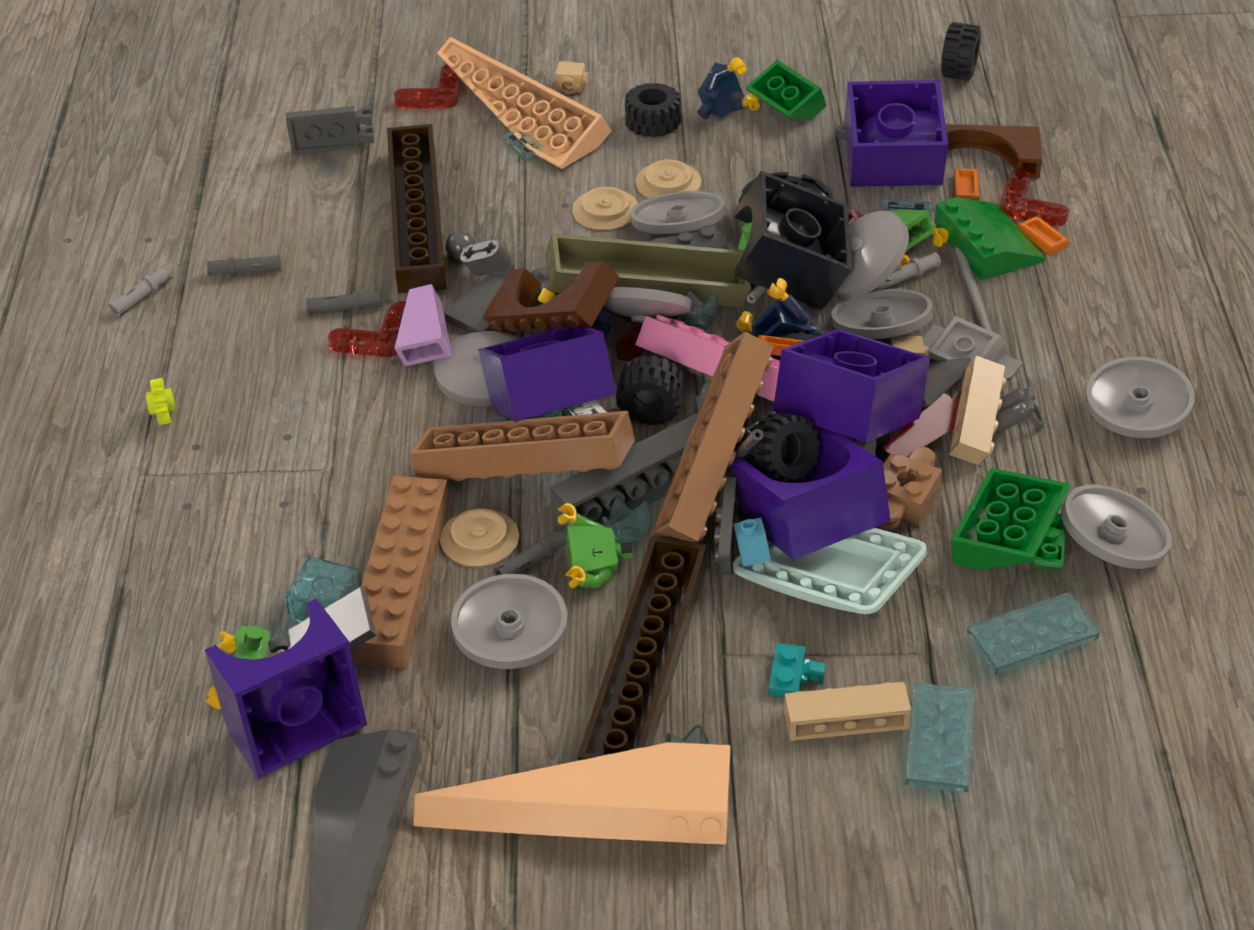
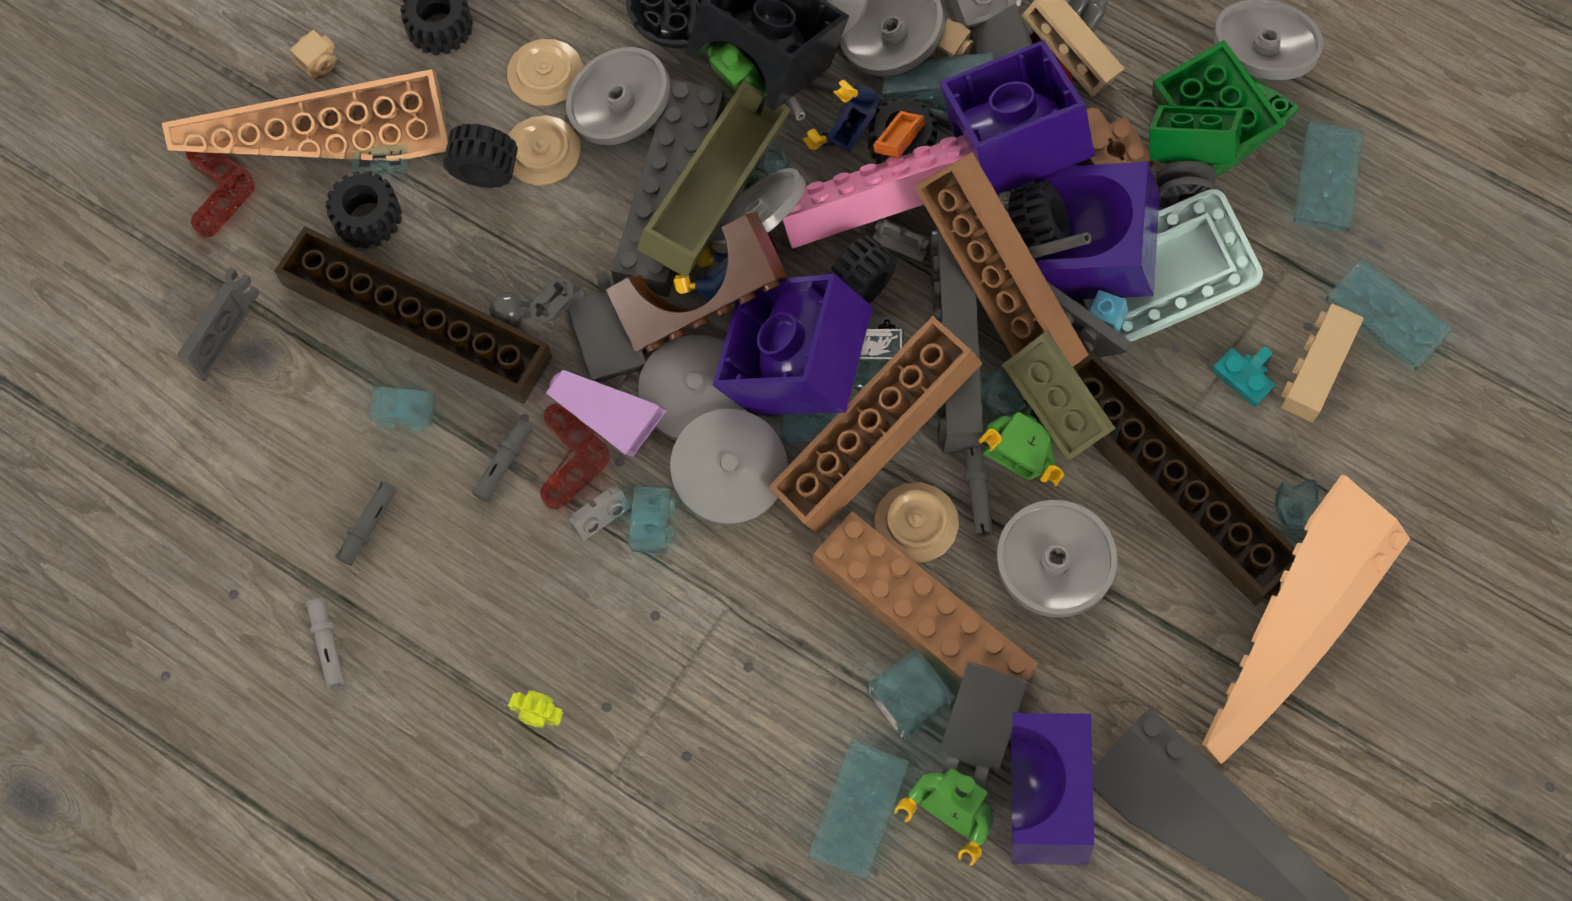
camera: 55 degrees left, 25 degrees up
(206, 613) = (858, 809): none -> clear light blue tile
(342, 235) = (402, 407): none -> clear light blue brick
(342, 366) = (609, 506): none -> light grey hinge
(357, 391) = (651, 519): none -> clear light blue brick
(431, 399) = (726, 466): none -> light grey dish
(474, 149) = (357, 191): none -> black tyre
(561, 171) = (480, 155): none -> black tyre
(641, 537) = (1058, 396): none -> olive plate
(923, 526) = (1183, 181): none -> dark grey wheel
(961, 507) = (1195, 134): none -> green slope

